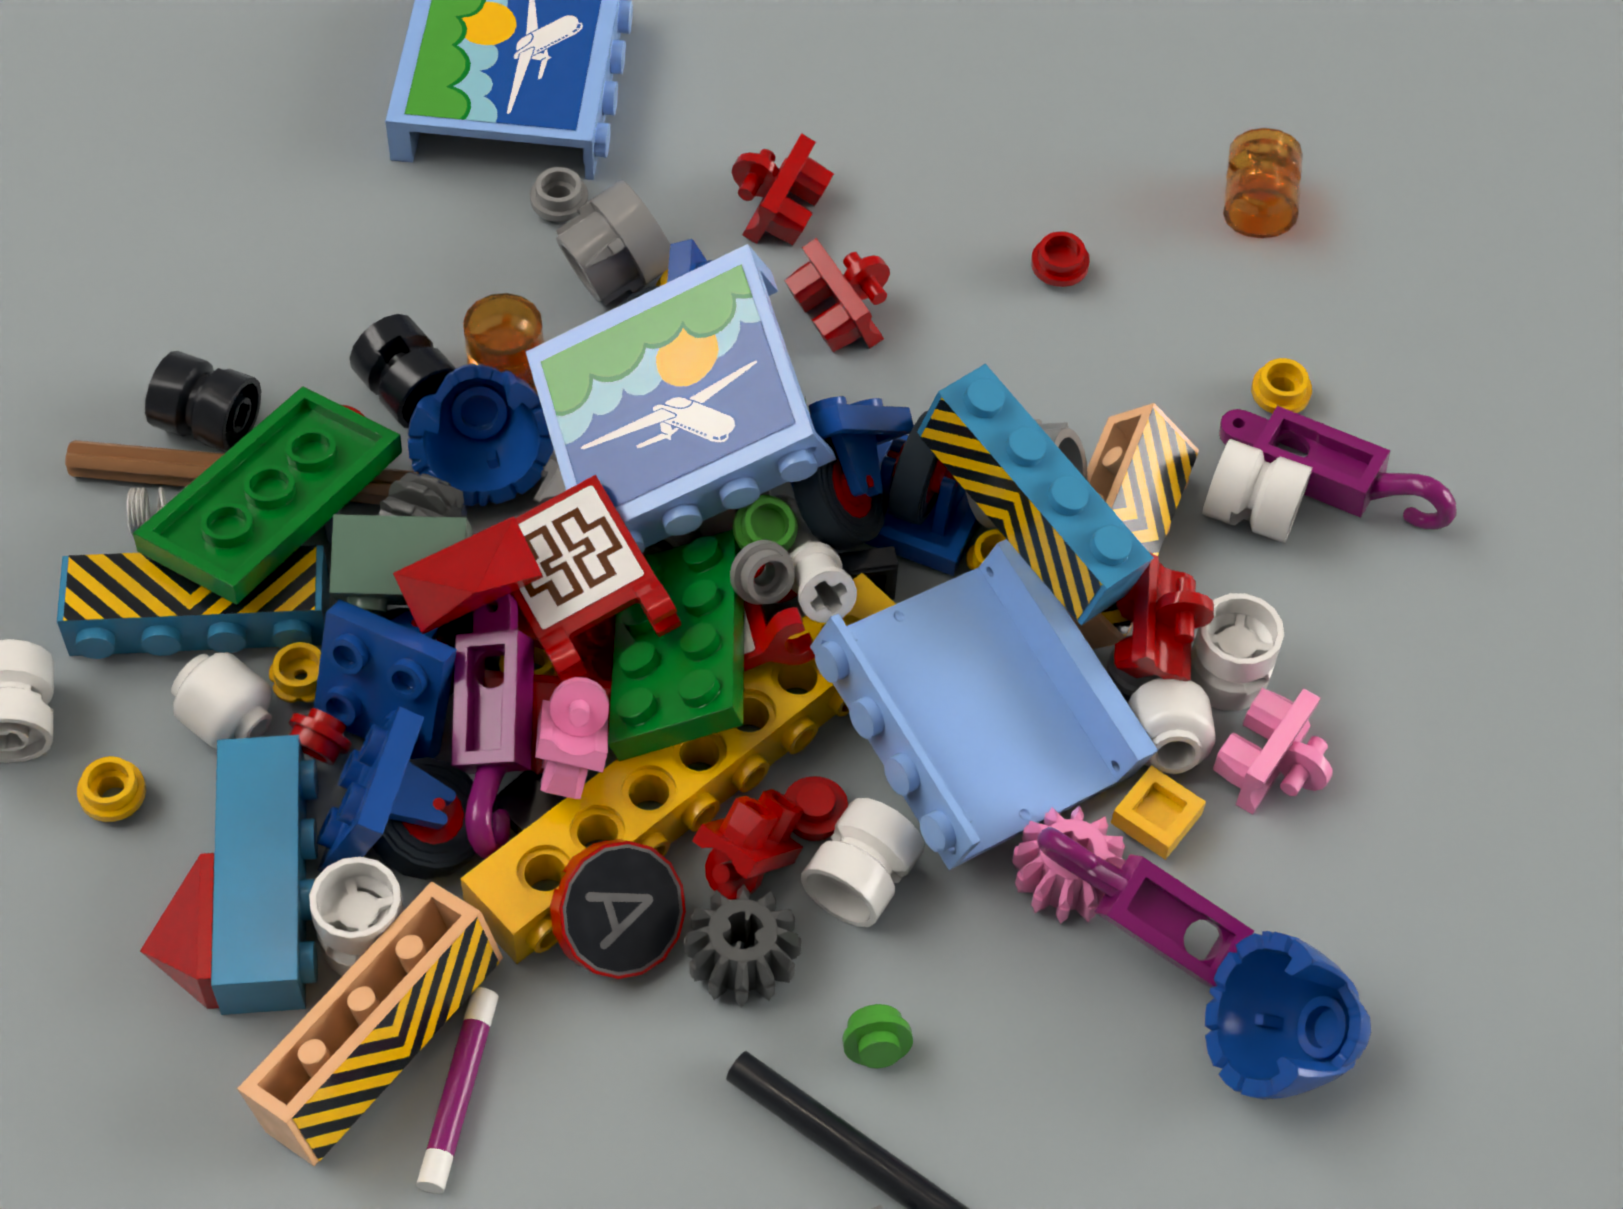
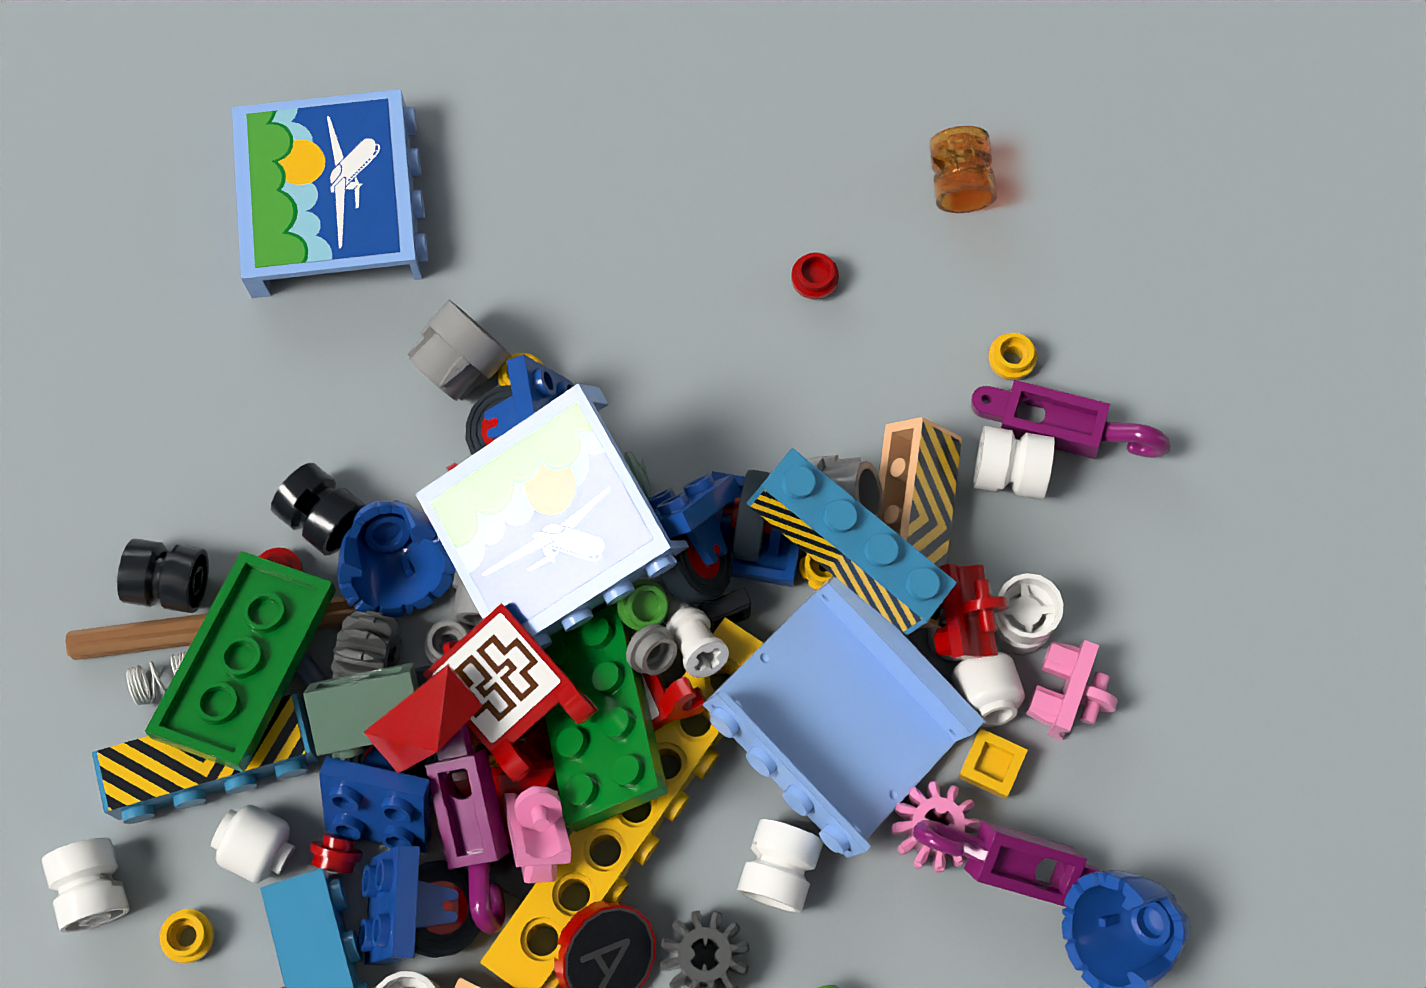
camera: 10 degrees left, 15 degrees up
(291, 661) = (293, 799): yellow plate -> none
(500, 333) = (392, 467): clear orange wheel -> none
(558, 194) = (396, 294): light grey plate -> none
(749, 842) = (692, 870): red hips -> none
(760, 177) = (584, 245): red hips -> none
(822, 805) = (731, 820): red plate -> none
(849, 316) = (660, 370): red hips -> none

